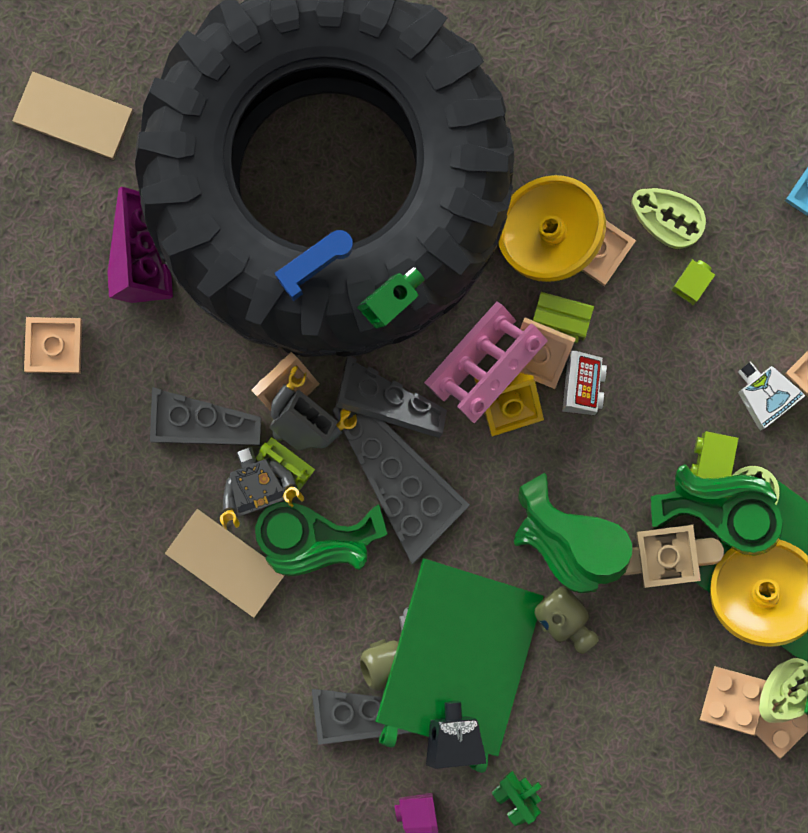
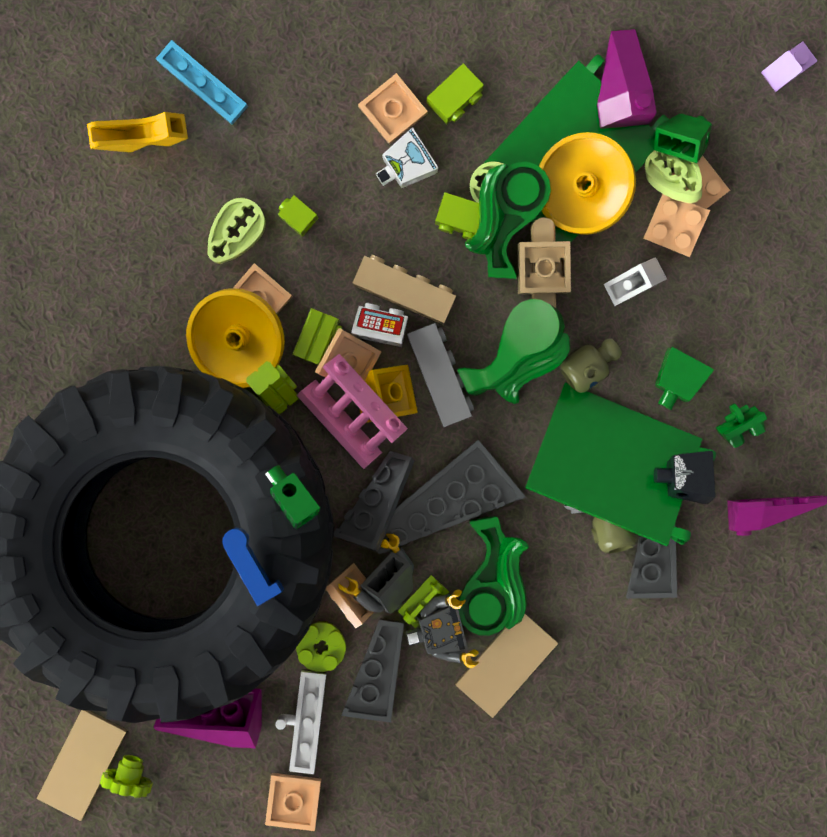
camera: 85 degrees left, 5 degrees up
(65, 164) = (127, 778): none -> lime plant
(141, 350) = (306, 722): none -> white plate
(211, 366) = (328, 658): none -> lime plate
(503, 274) = (273, 386): none -> lime brick
(536, 454) = (439, 374): none -> light grey brick
(563, 723) = (680, 377): none -> green torso
(625, 407) = (404, 290): none -> tan brick
(665, 661) = (635, 281): none -> white slope
(761, 99) = (135, 134): none -> yellow arch

